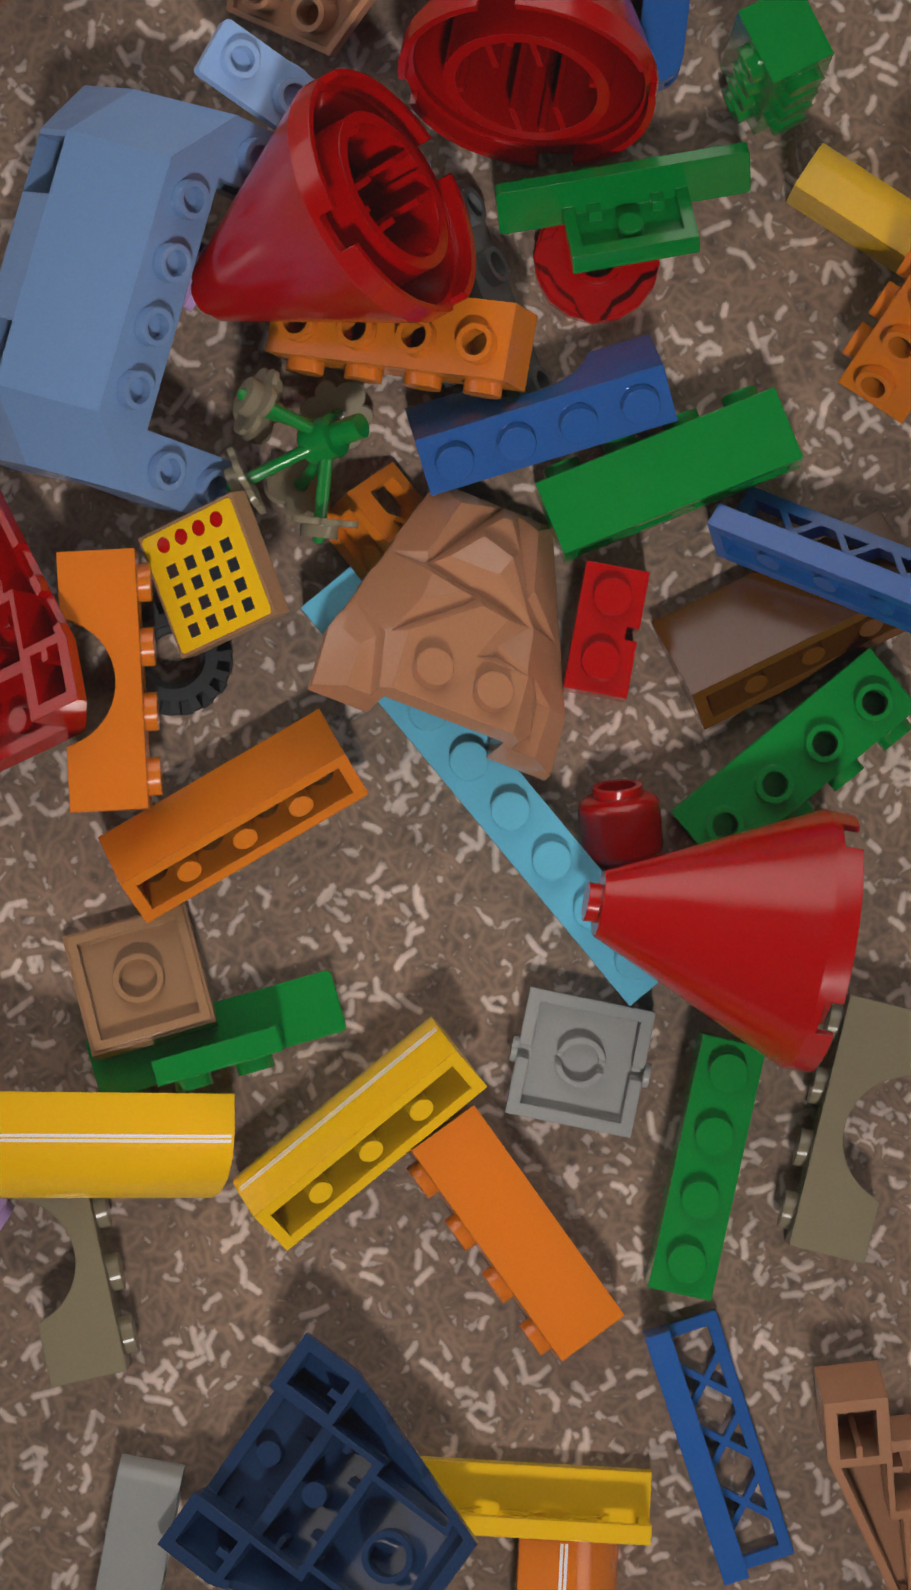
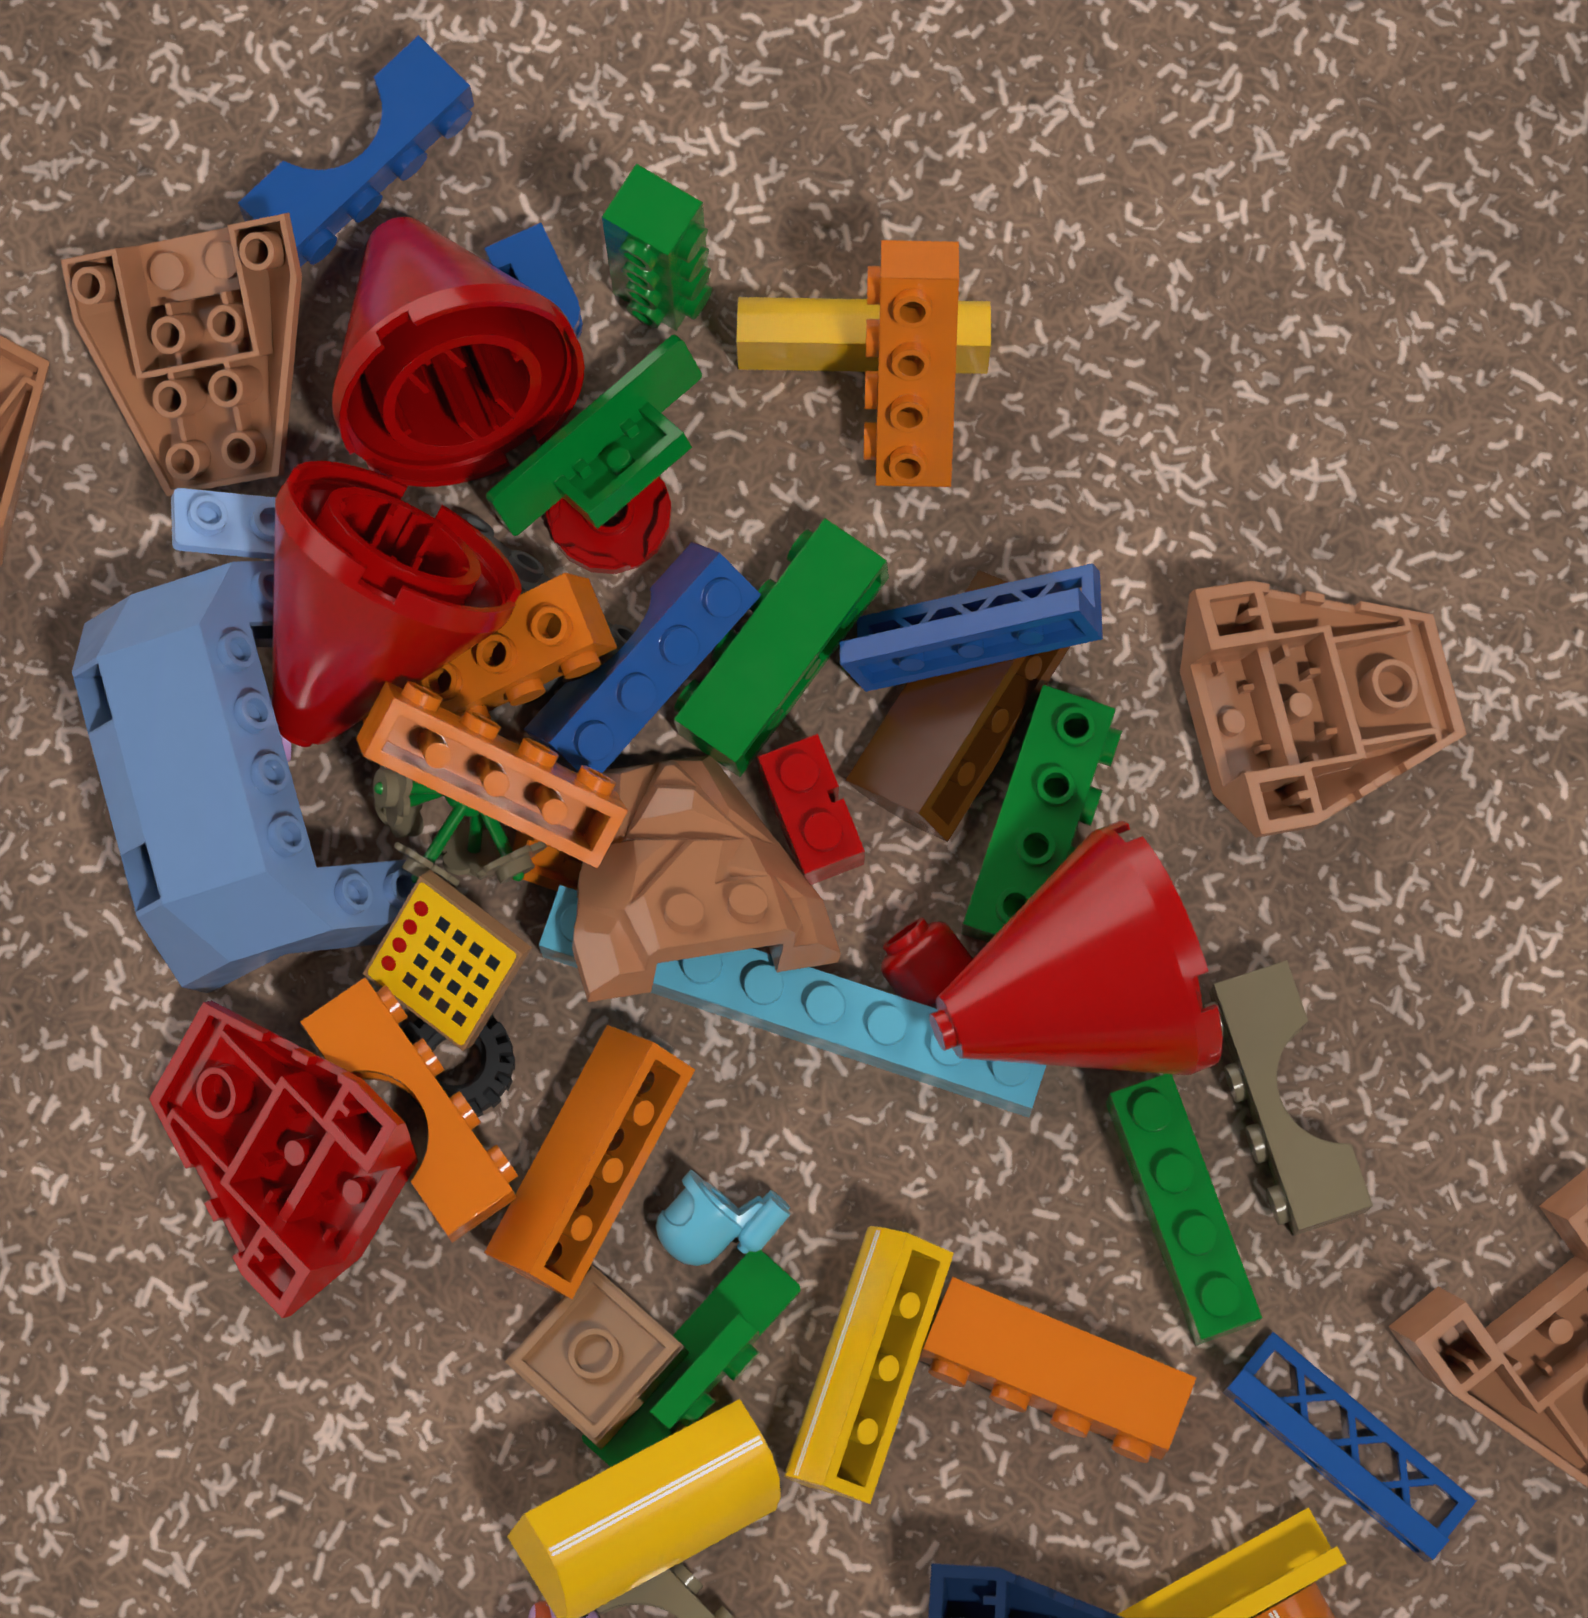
camera: 35 degrees left, 10 degrees down
(301, 925) = (706, 1222): none -> medium azure piece
(343, 443) = (492, 773): none -> orange brick
(580, 1062) = (1020, 1189): light grey plate -> none

